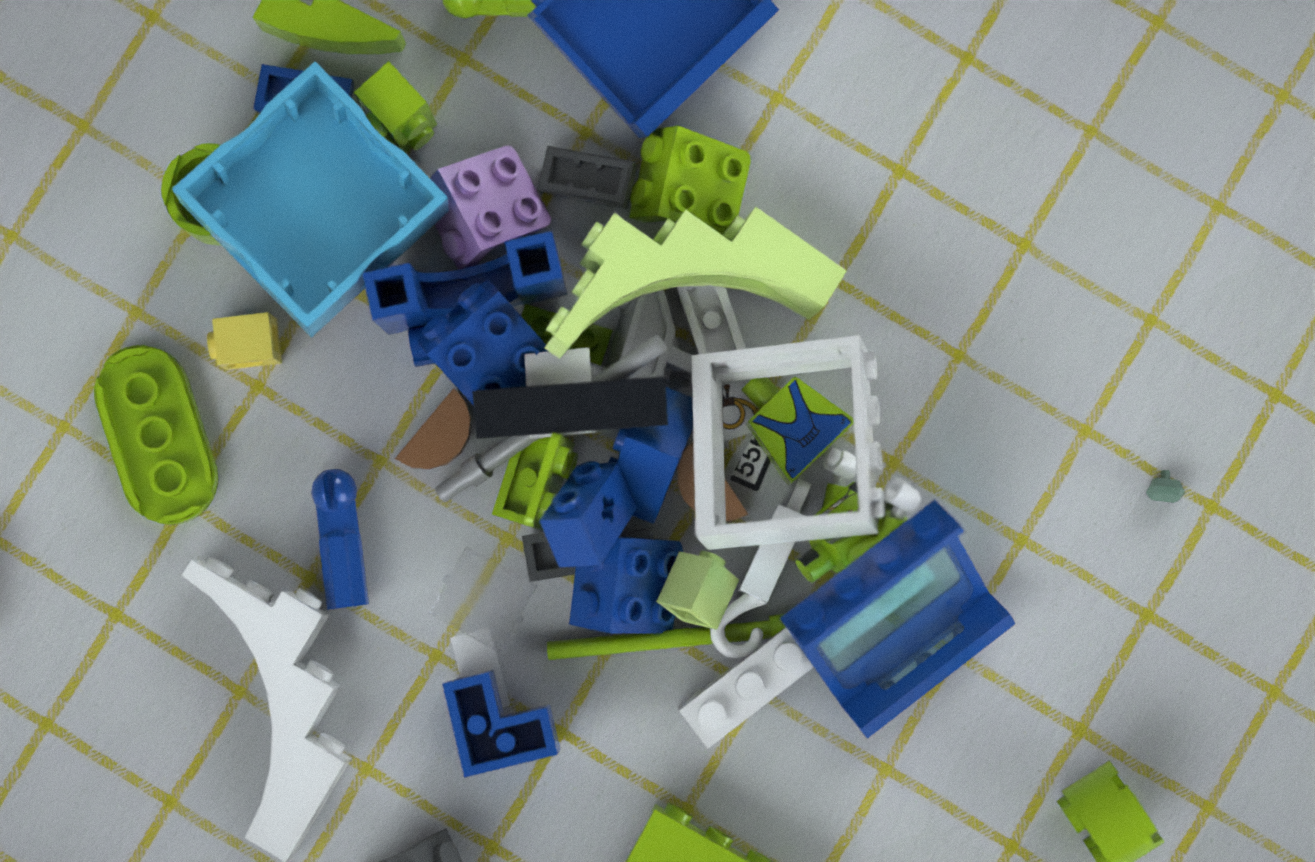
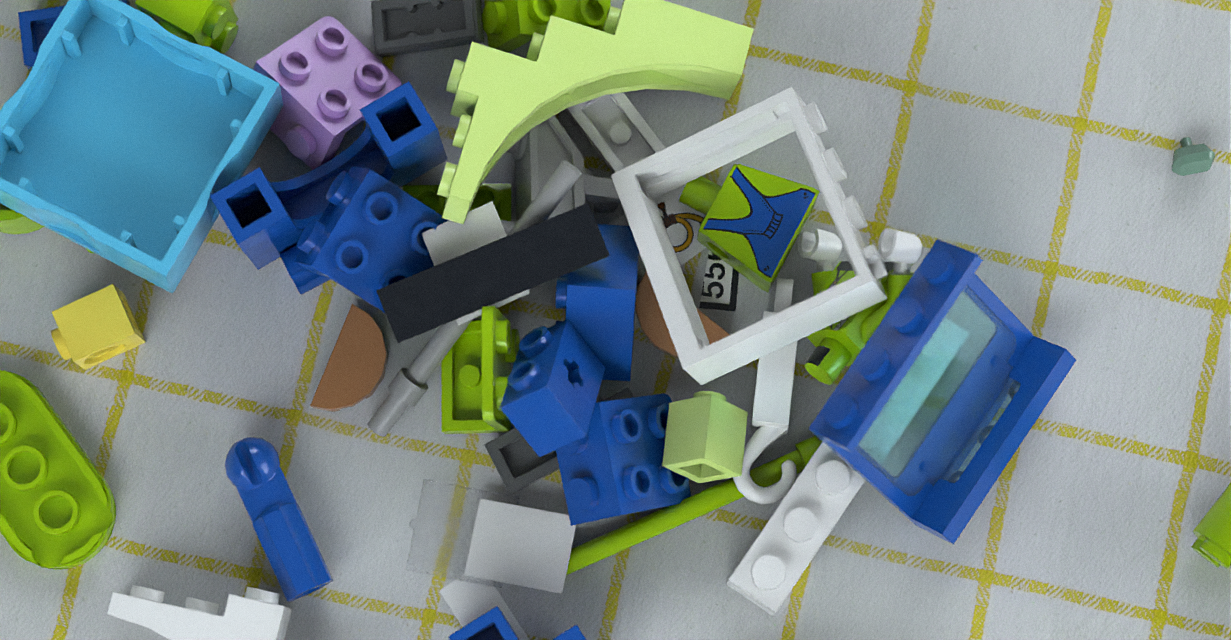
camera: 15 degrees left, 5 degrees down
(524, 625) = (520, 546): none -> white sticker

